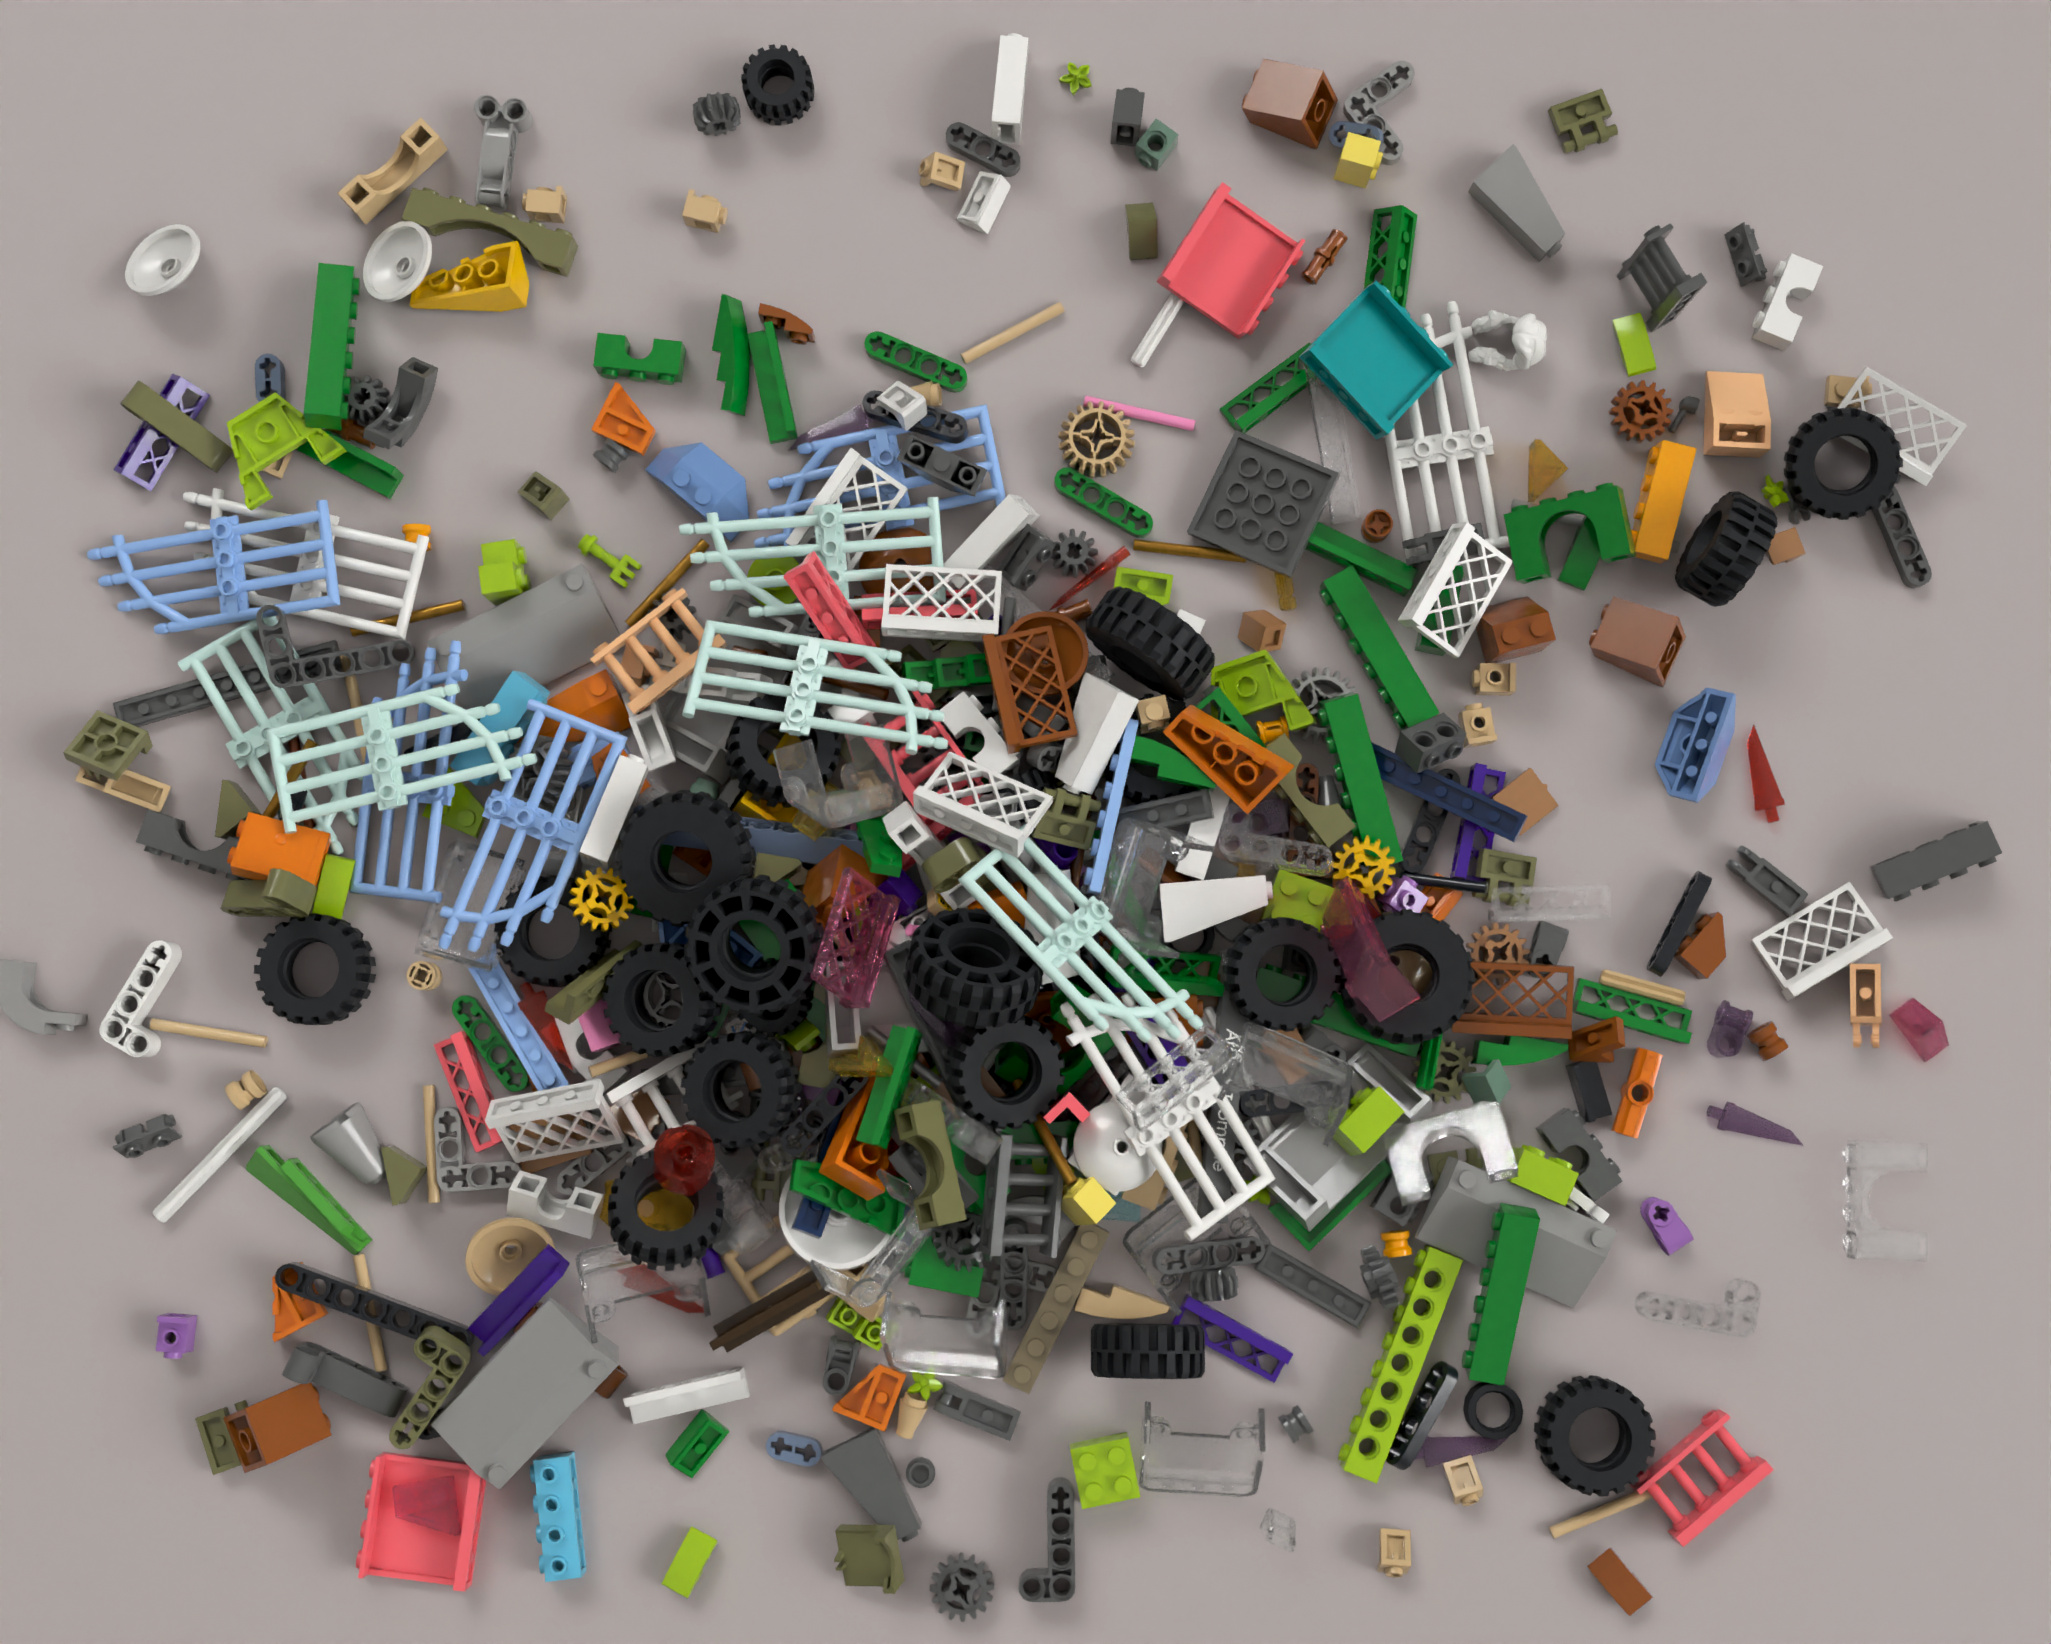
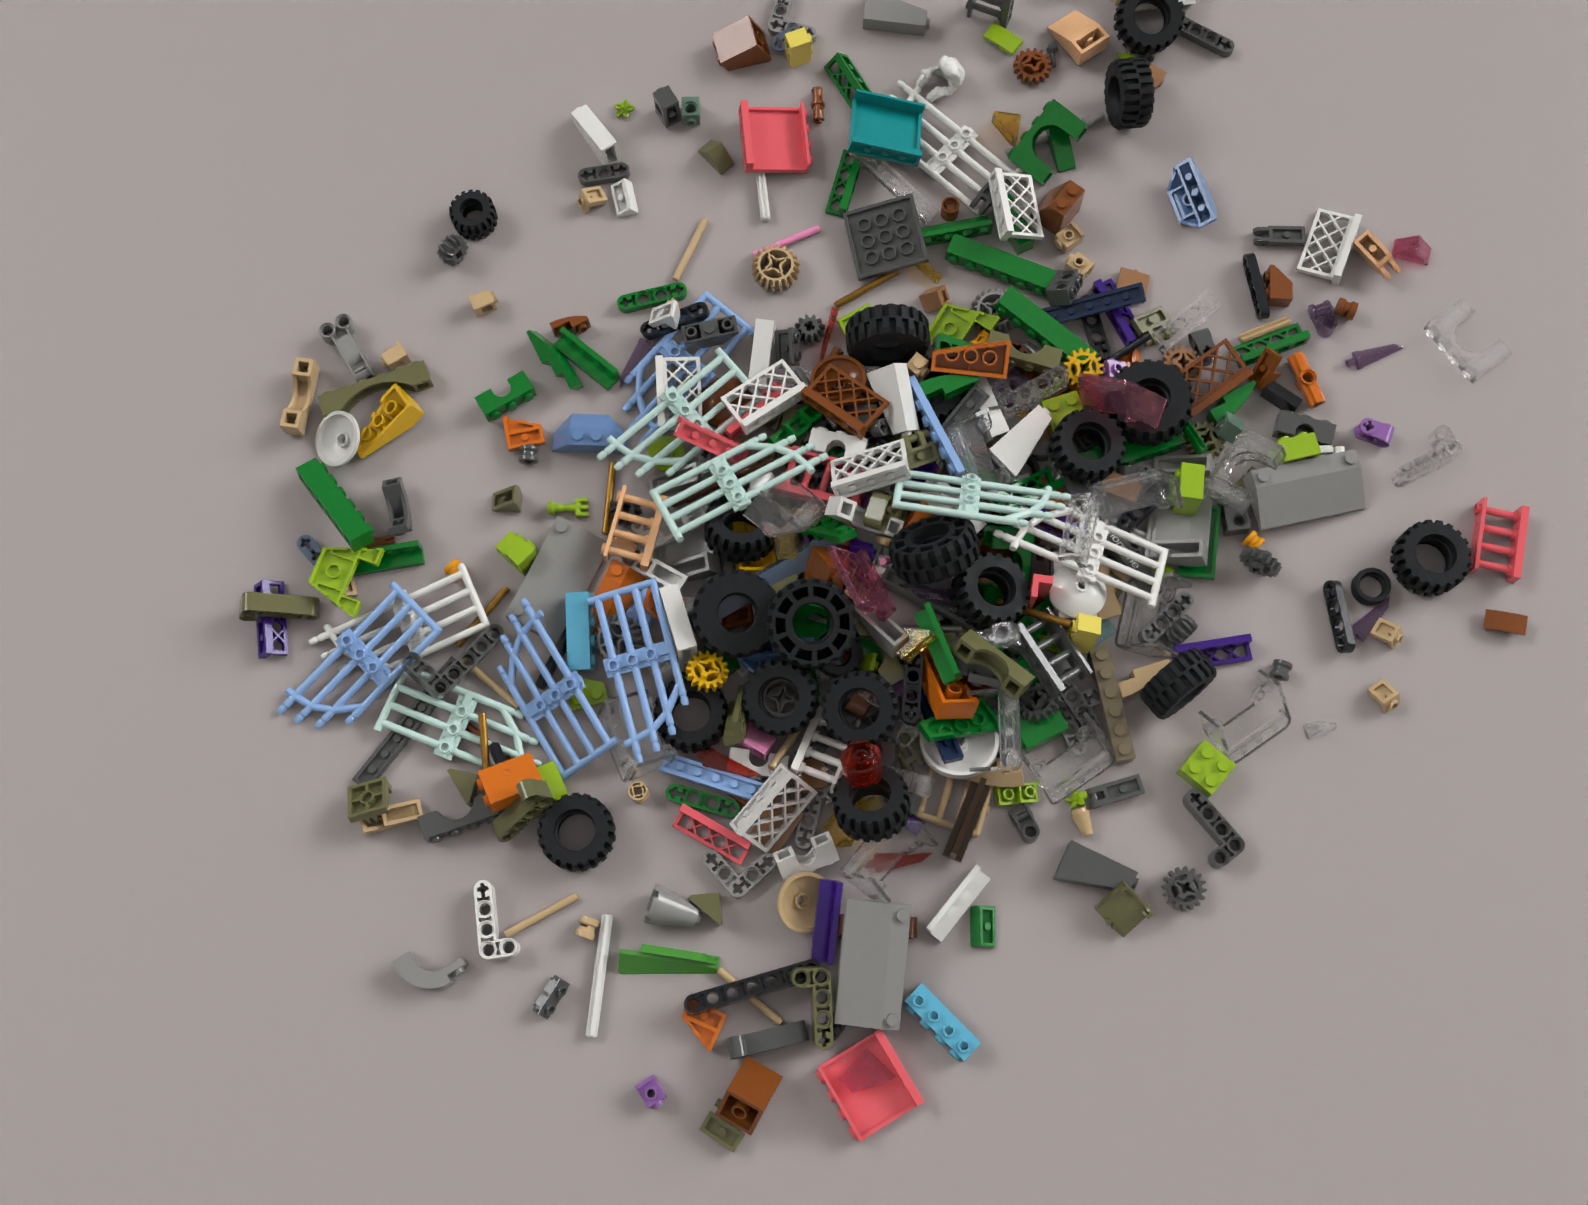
camera: 35 degrees left, 10 degrees down
(163, 260) = (206, 528): white dish -> none
(370, 408) = (380, 519): dark grey gear -> none
(383, 753) = (529, 685): light aqua piece -> none
(429, 1114) = (712, 879): tan bar -> none
(689, 1562) = (1031, 991): lime slope -> none
(792, 1455) = (1034, 883): sand blue beam -> none
(873, 1397) = (1056, 826): orange wing -> none
(920, 1472) = (1112, 847): dark grey plate -> none
(1106, 498) = (803, 293): green beam -> none
(1313, 1285) = (1230, 596): dark grey tile -> none
(1370, 1464) = (1315, 606): lime brick -> none
(1501, 1293) = (1327, 522): green brick -> none
(1599, 1513) = (1465, 598): tan bar -> none
(1638, 639) = (1121, 169): dark orange slope -> none
(1661, 499) = (1076, 94): light orange wedge -> none
(1765, 788) = (1238, 193): clear red bar -> none
(1936, 860) = (1350, 165): dark grey wedge -> none

